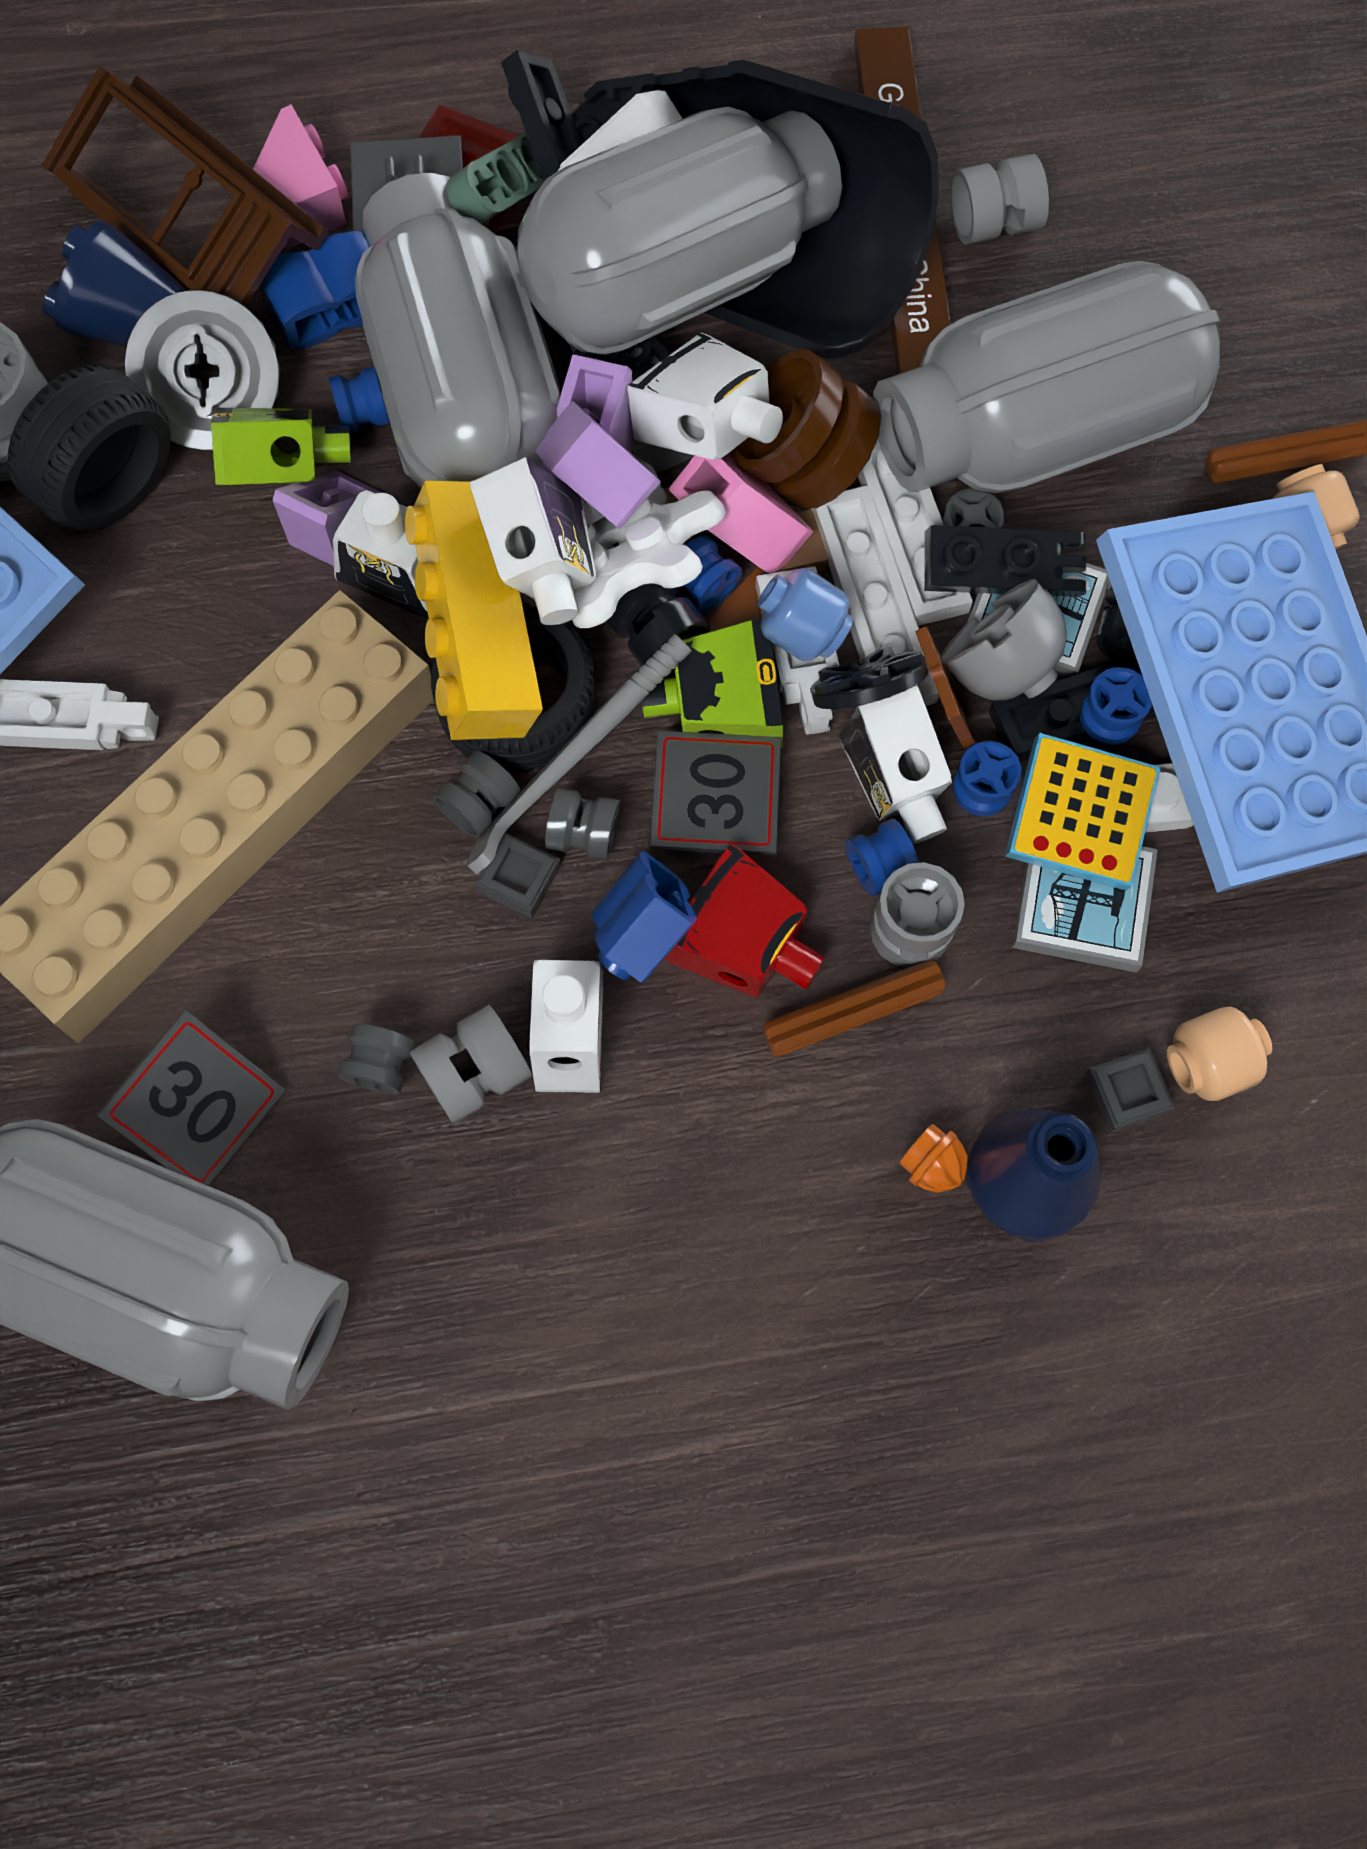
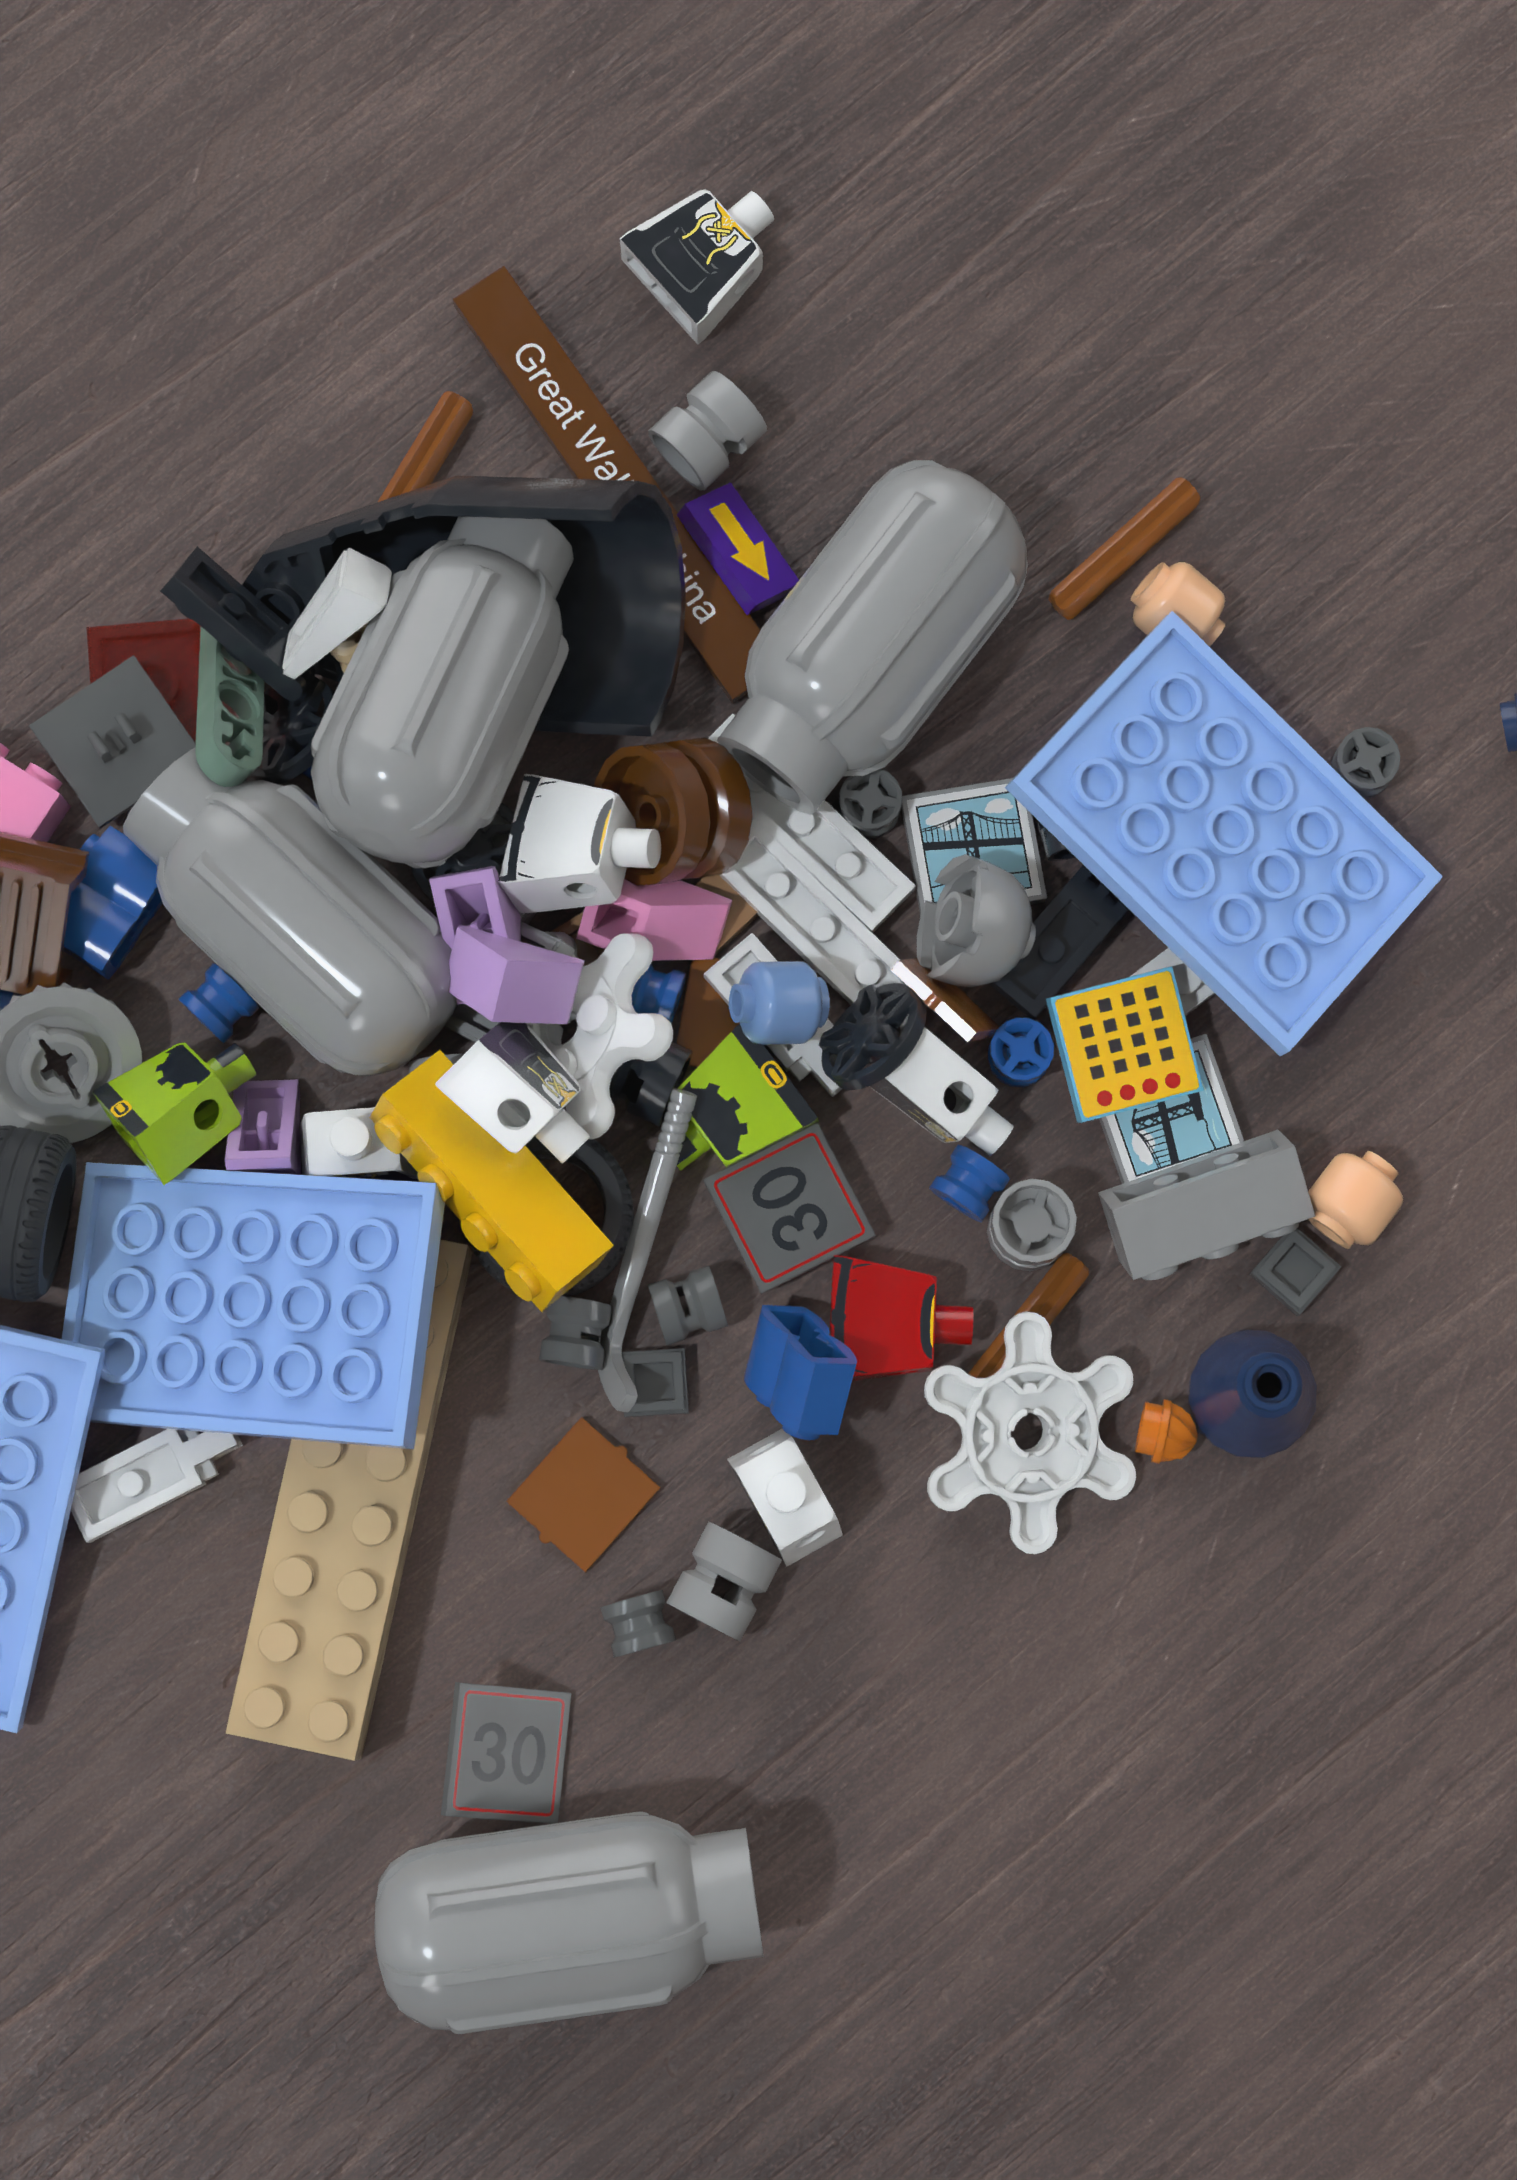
camera: 30 degrees left, 10 degrees up
(229, 614) = (256, 1301): none -> light blue plate
(402, 933) = (583, 1494): none -> dark orange piece
(859, 1093) = (1070, 1444): none -> white plate
(968, 277) = (738, 548): none -> dark purple tile
(1001, 559) = (922, 834): black hinge -> none
(1062, 87) = (699, 257): none -> torso
(1083, 987) = (1207, 1206): none -> light grey brick
(1112, 691) = (1104, 915): blue wheel -> none

